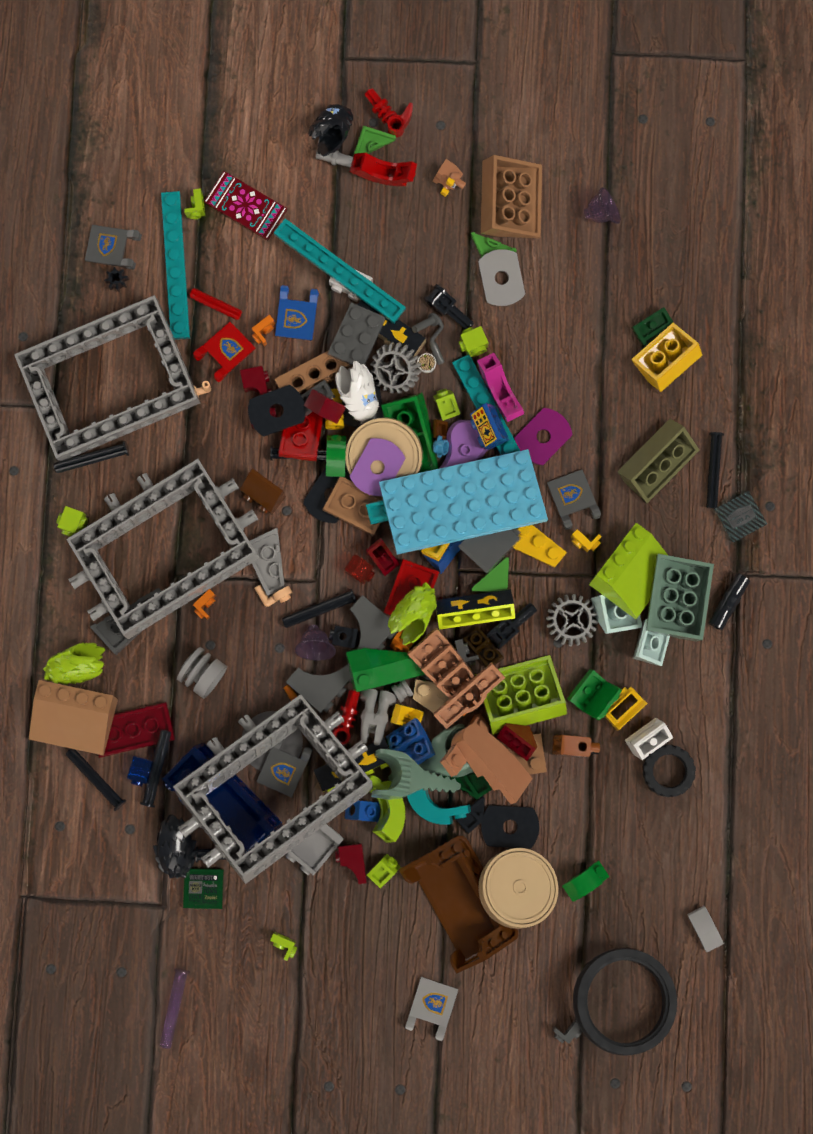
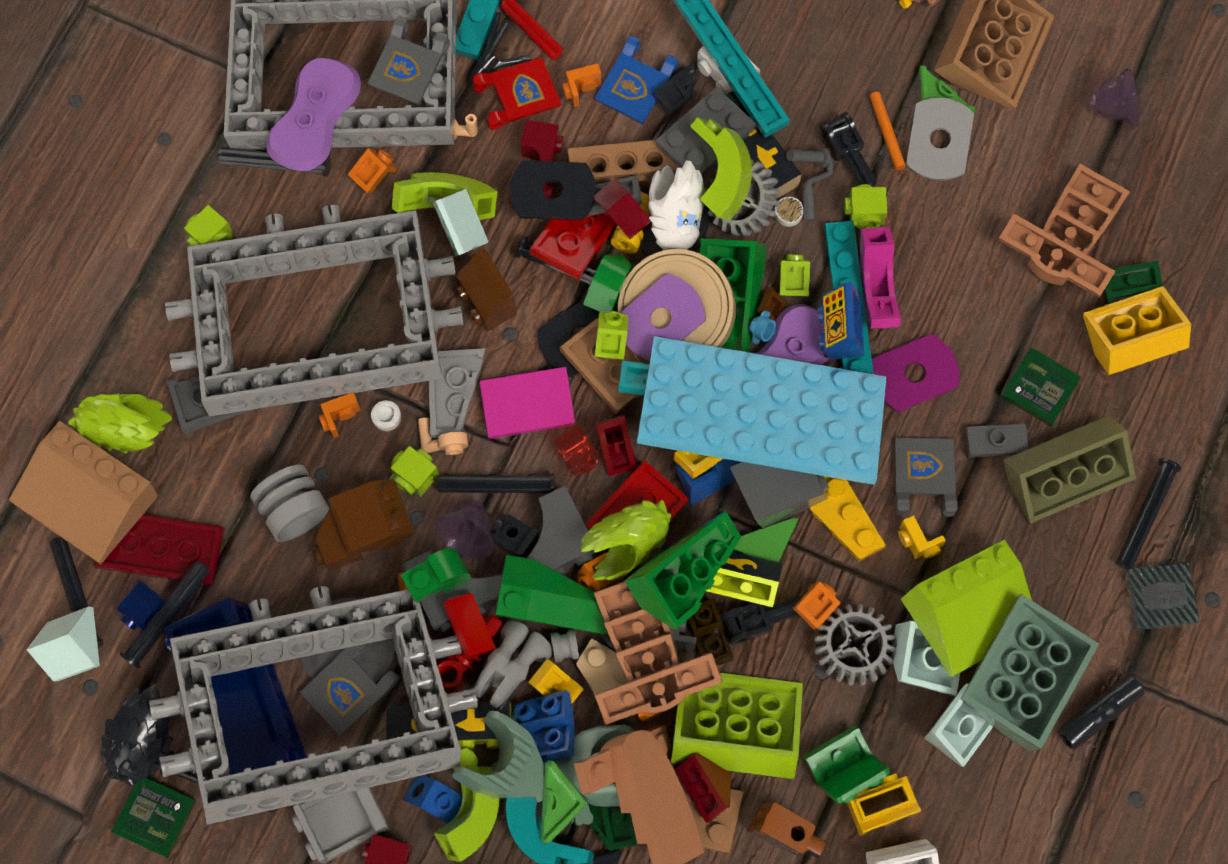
camera: 20 degrees right, 10 degrees down
(106, 435) = (305, 132): none -> medium lavender plate
(106, 811) = (67, 645): none -> light aqua slope
(151, 368) = (405, 66): none -> dark grey flag
(156, 439) = (372, 169): none -> orange bracket
(197, 337) = (488, 60): none -> black plant
(210, 436) = (429, 187): none -> lime arch
(229, 455) = (460, 222): none -> light aqua slope
(233, 593) = (386, 415): none -> white tile
(238, 682) = (331, 546): none -> reddish brown slope
(254, 661) = (371, 517): none -> reddish brown slope
(266, 622) = (413, 471): none -> lime brick
(310, 682) = (440, 571): none -> green brick
(316, 550) = (527, 403): none -> dark pink tile
(325, 310) = (676, 90): none -> black tile
(342, 703) = (469, 625): none -> red tile
(352, 490) = (611, 335): none -> lime bracket
(384, 353) = (734, 168): none -> lime arch
(439, 785) = (560, 802): none -> bright green tile
(455, 624) = (679, 576): none -> green wedge
(466, 284) = (887, 131): none -> orange bar
(540, 605) = (817, 604): none -> orange bracket
(605, 308) = (1070, 233): none -> nougat slope
(608, 459) = (996, 440): none -> dark grey plate
(622, 415) = (1041, 386): none -> dark green tile

